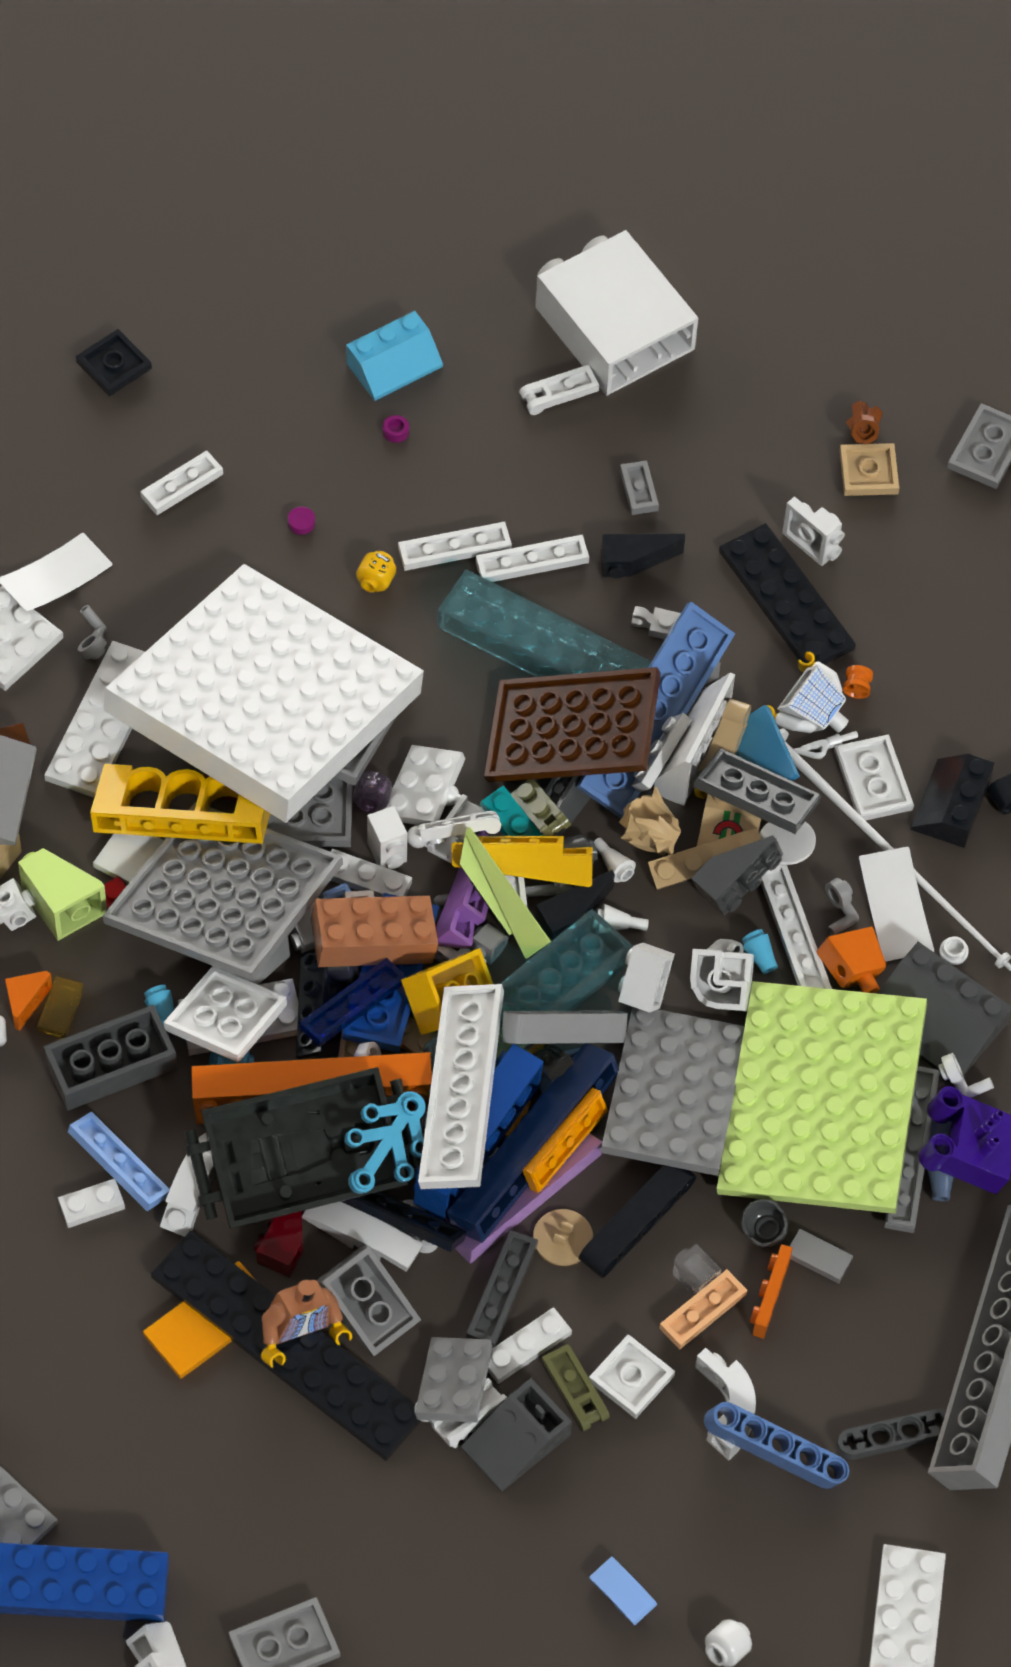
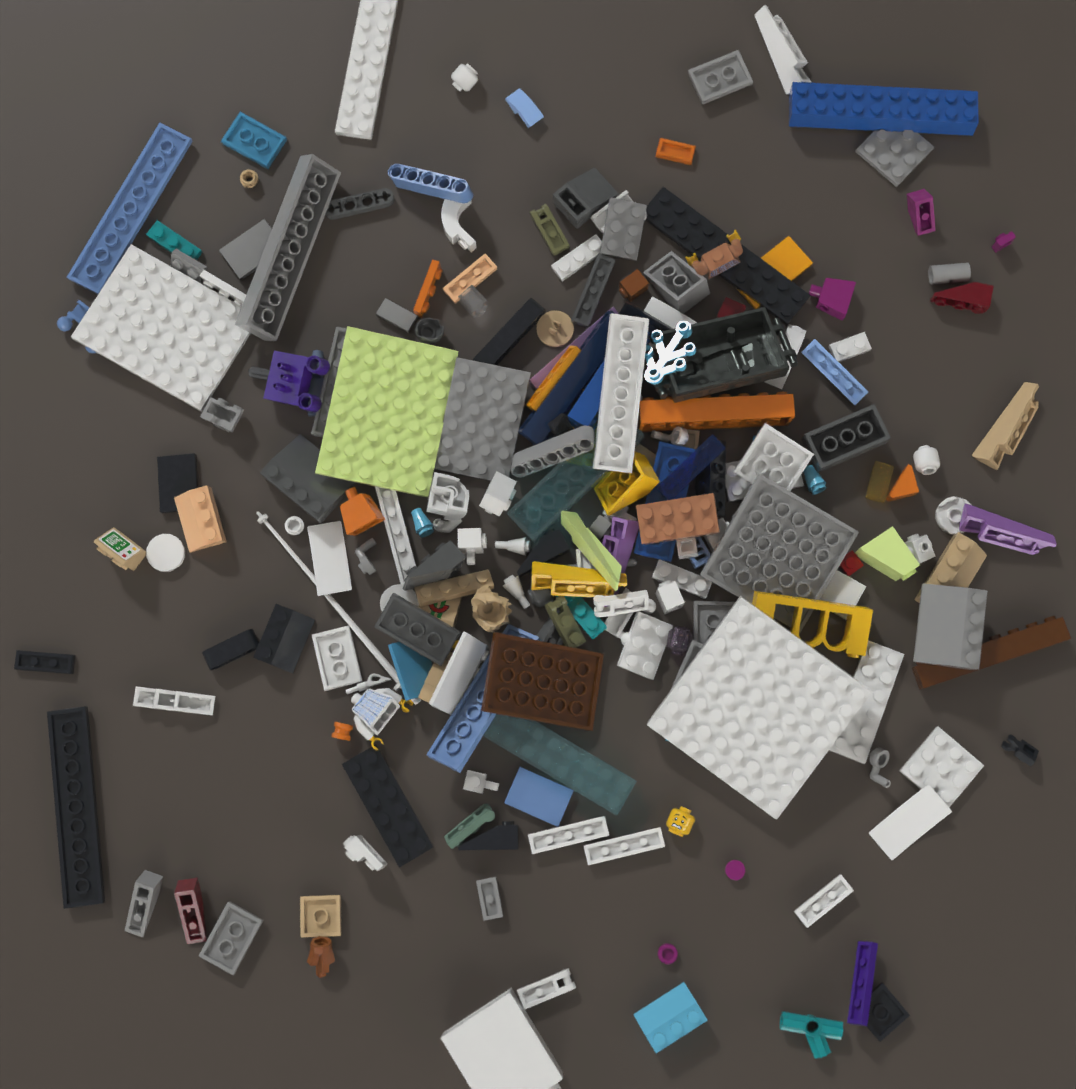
camera: 170 degrees left, 20 degrees up
(112, 1275) = (833, 296): none -> magenta torso
(137, 386) = (862, 983): none -> dark purple plate
(205, 343) = (816, 1037): none -> teal piece
(363, 1520) = (675, 151): none -> orange tile
(437, 1293) = (633, 285): none -> dark orange brick
(578, 602) = (538, 796): none -> medium blue tile
(631, 1376) = (515, 236): white plate -> none
(661, 751) = (478, 667): white plate -> none
(671, 568) = (469, 825): none -> sand green plate
(683, 913) = (471, 542): none -> white brick
(951, 1070) = (303, 433): white plate -> none

